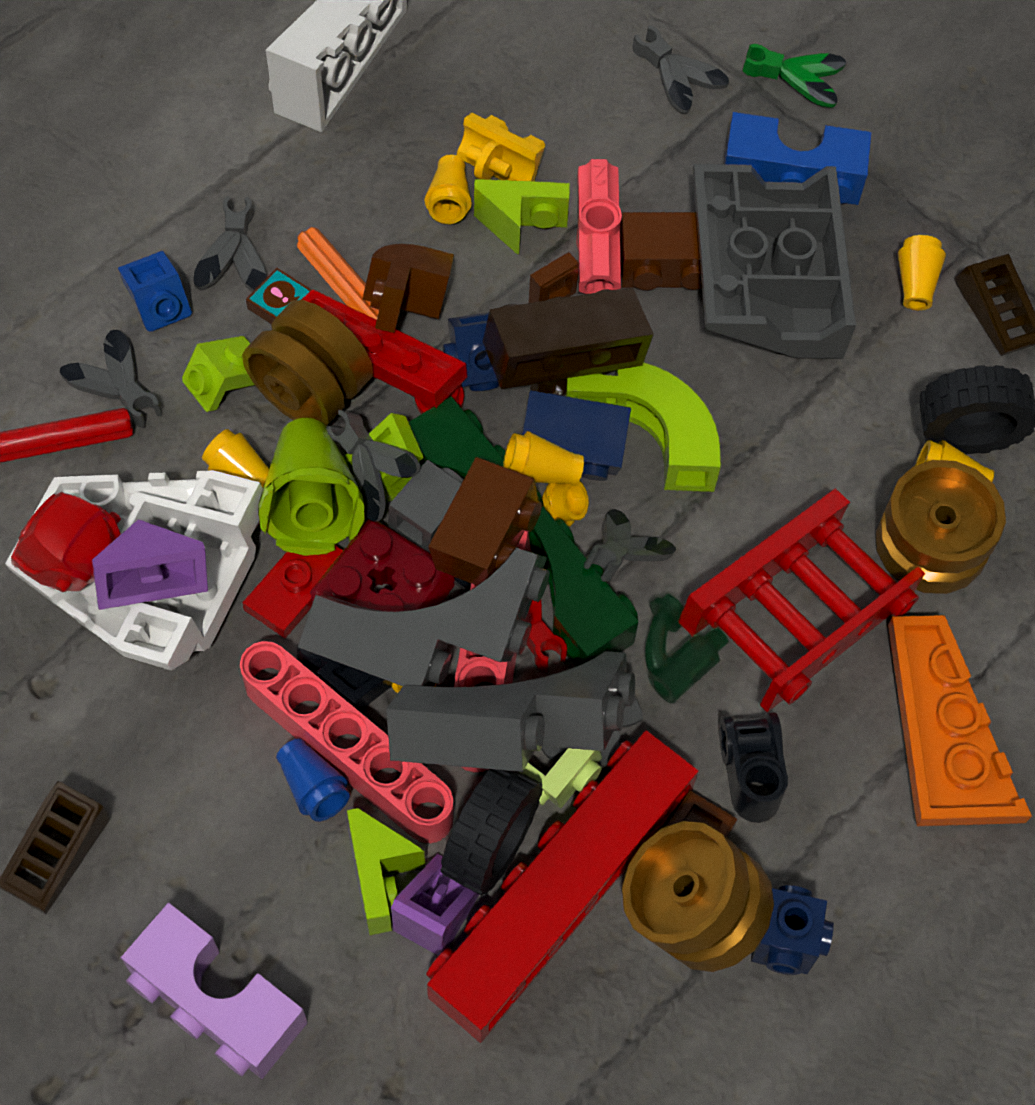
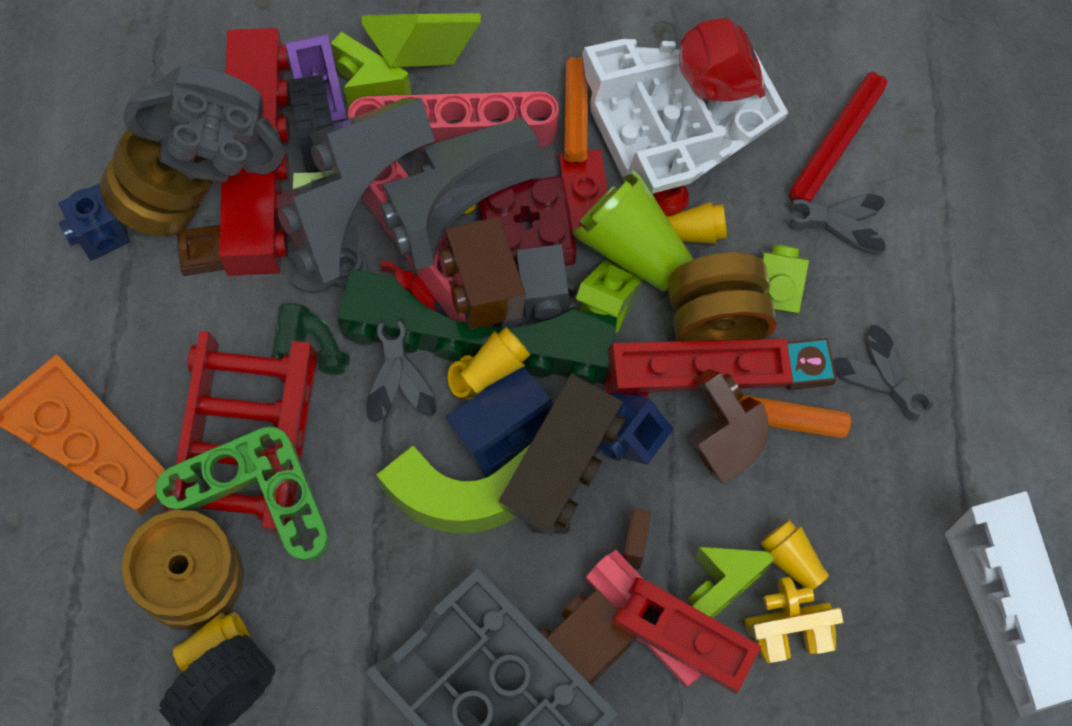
camera: 140 degrees right, 5 degrees up
(148, 566) = (661, 84): medium lavender slope -> none
(156, 290) = (894, 290): blue bracket -> none
(221, 656) = (576, 111): none -> orange axle
(289, 848) = (421, 38): none -> lime slope
(312, 781) = (450, 82): blue cone -> none
(369, 459) = (603, 271): dark grey piece -> none
(595, 172) = (688, 635): none -> red plate
(616, 844) = (207, 117): none -> dark grey piece
(754, 755) = (196, 309): black piece -> none
(825, 534) = (252, 470): none -> bright green beam

